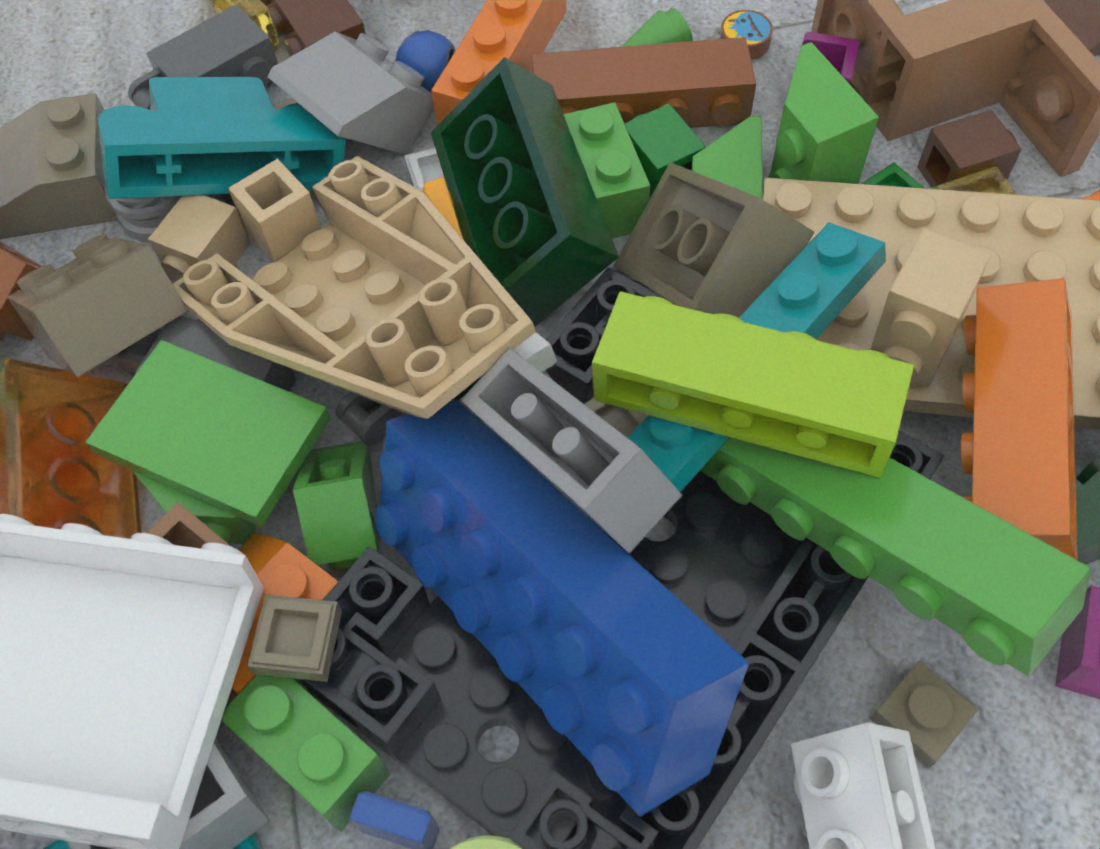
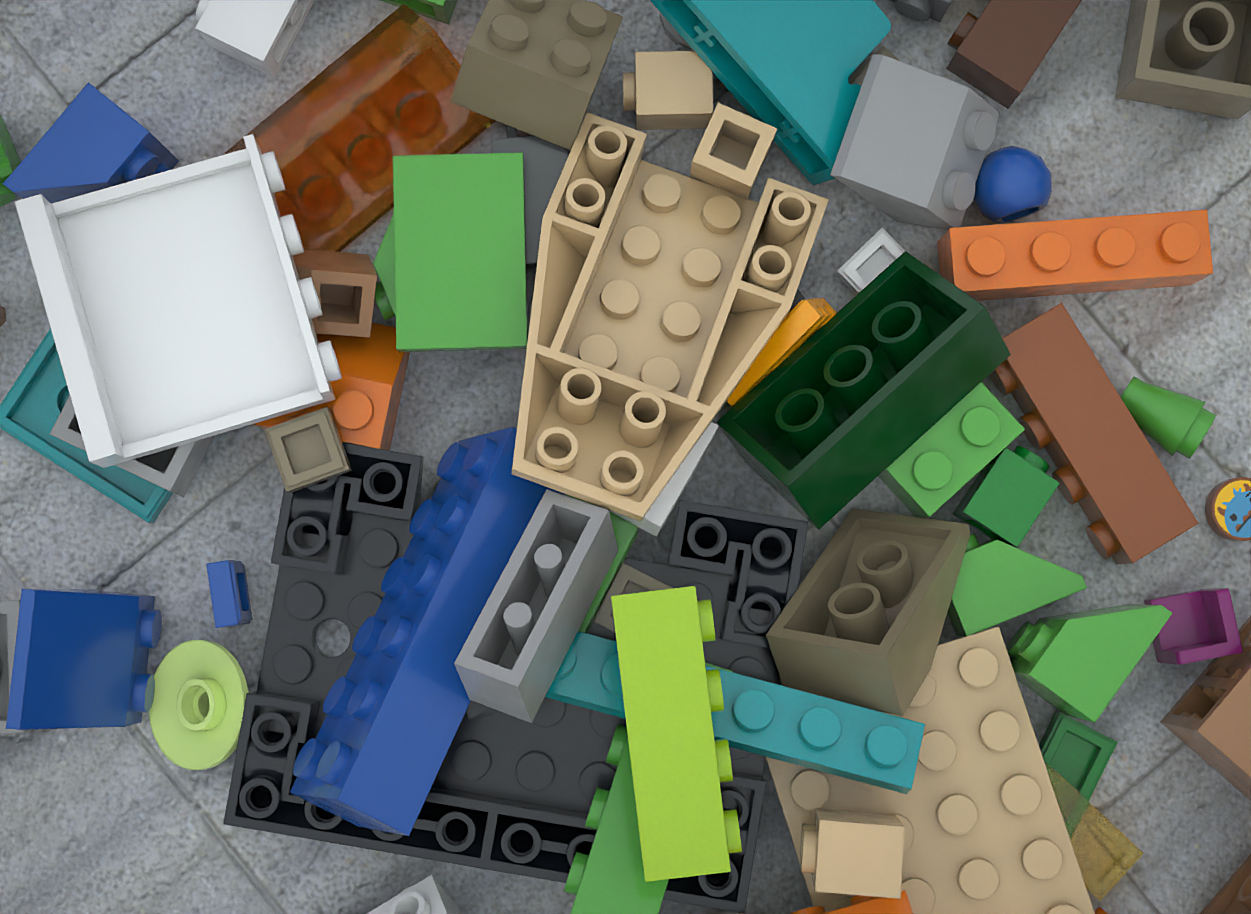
camera: 60 degrees right, 25 degrees up
(305, 745) = (243, 497): bright green brick -> none
(337, 504) = (461, 396): bright green slope -> none
(968, 148) = (1156, 820): reddish brown brick -> none

